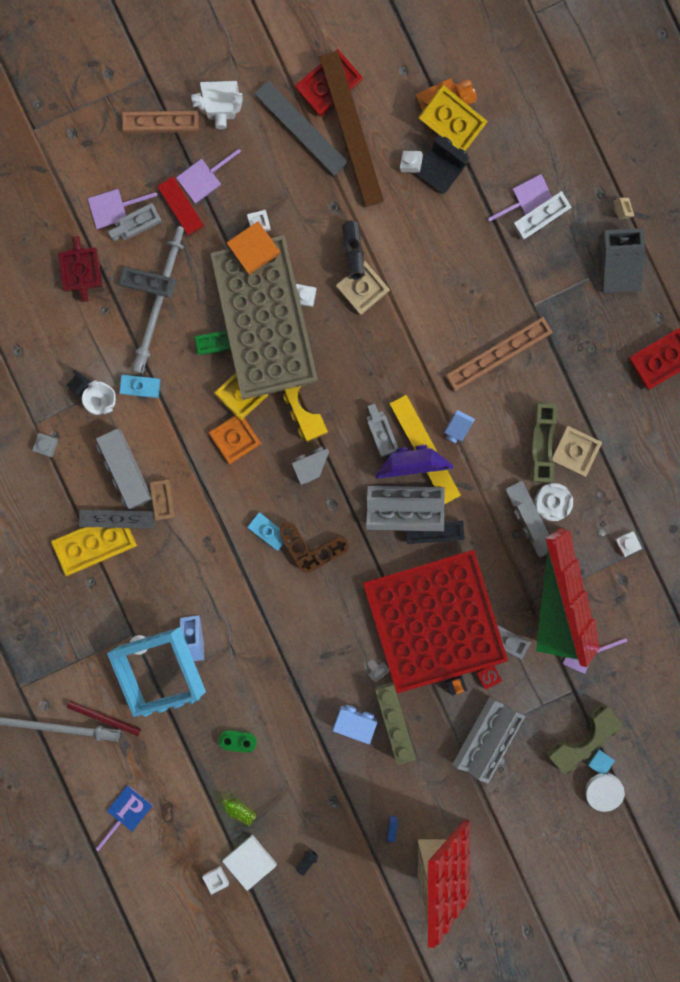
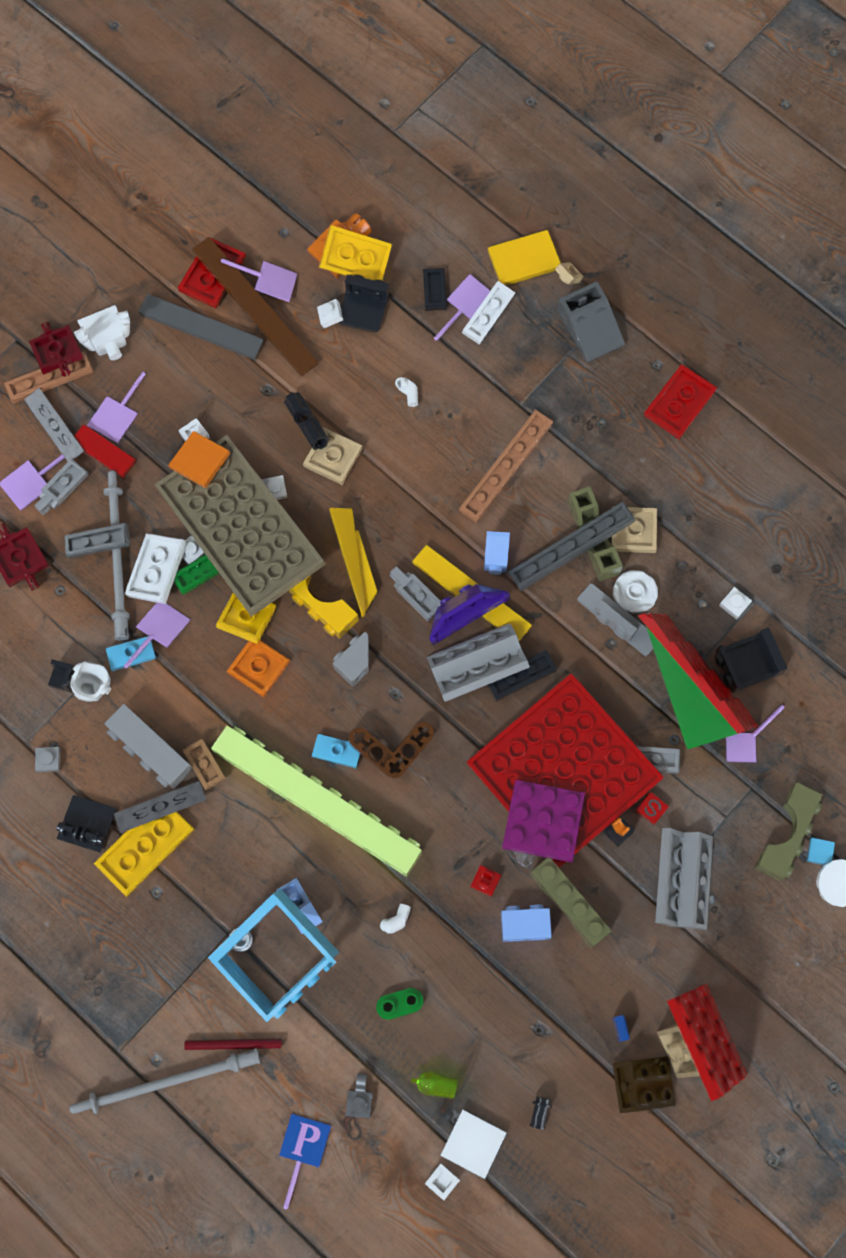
camera: 20 degrees left, 15 degrees down
(56, 508) = (86, 823): none -> black hinge
(149, 166) = (53, 425): none -> flat silver sticker
(172, 372) = (160, 624): none -> lavender piece
(173, 100) = (55, 349): none -> dark red plate
(180, 797) = (359, 1101): none -> flat silver plate
(185, 325) = (155, 568): none -> white tile
(217, 321) = (192, 551): none -> white plate
(236, 564) = (317, 801): none -> yellowish green brick
(261, 681) = (397, 922): none -> white arm
(339, 677) = (485, 881): none -> red tile
(345, 382) = (354, 558): none -> yellow wedge
(376, 111) = (271, 279): none -> lavender piece
(390, 875) = (644, 1084): none -> dark brown bracket
(401, 656) = (543, 821): none -> magenta plate
(448, 256) = (409, 389): none -> white arm
(506, 175) = (434, 289): none -> black tile
(521, 446) = (572, 546): none -> dark grey tile
(592, 178) = (524, 258): none -> yellow tile
(618, 595) = (750, 660): none -> black panel

